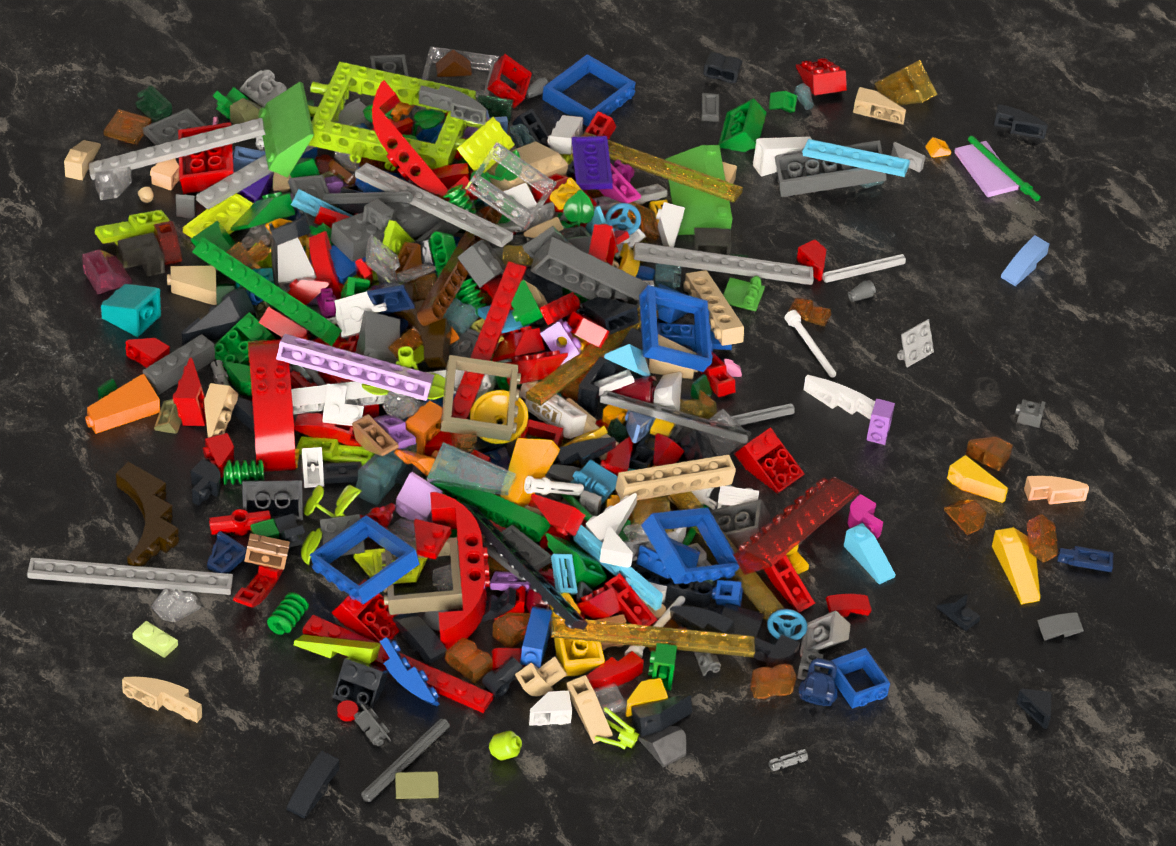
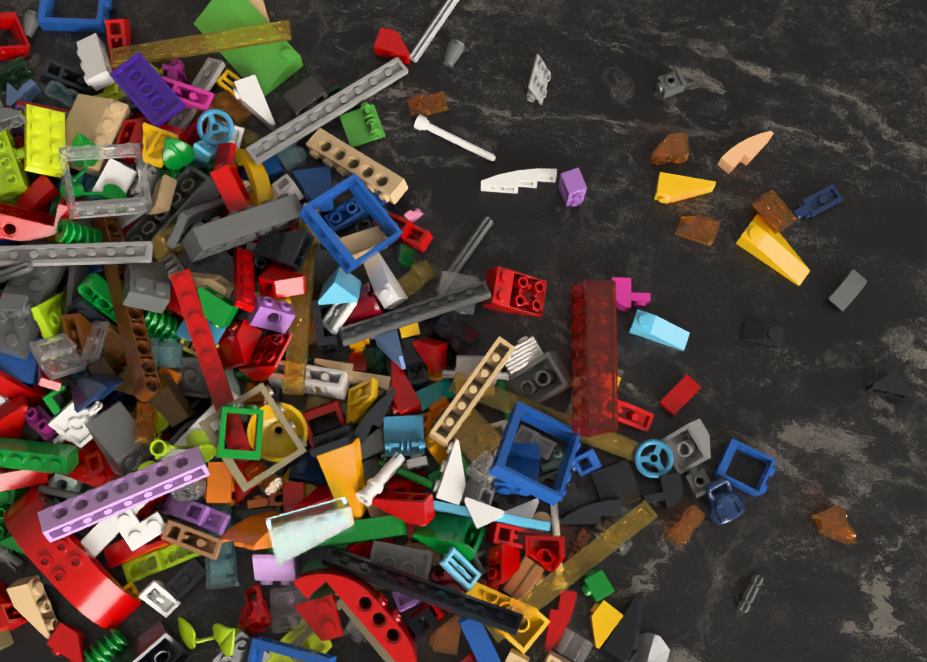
camera: 30 degrees left, 30 degrees up
(462, 390) = (239, 454): none -> window
(533, 434) = (332, 439): none -> black slope
(643, 613) = (545, 550): none -> red slope
(900, 759) = (834, 525): none -> clear orange slope

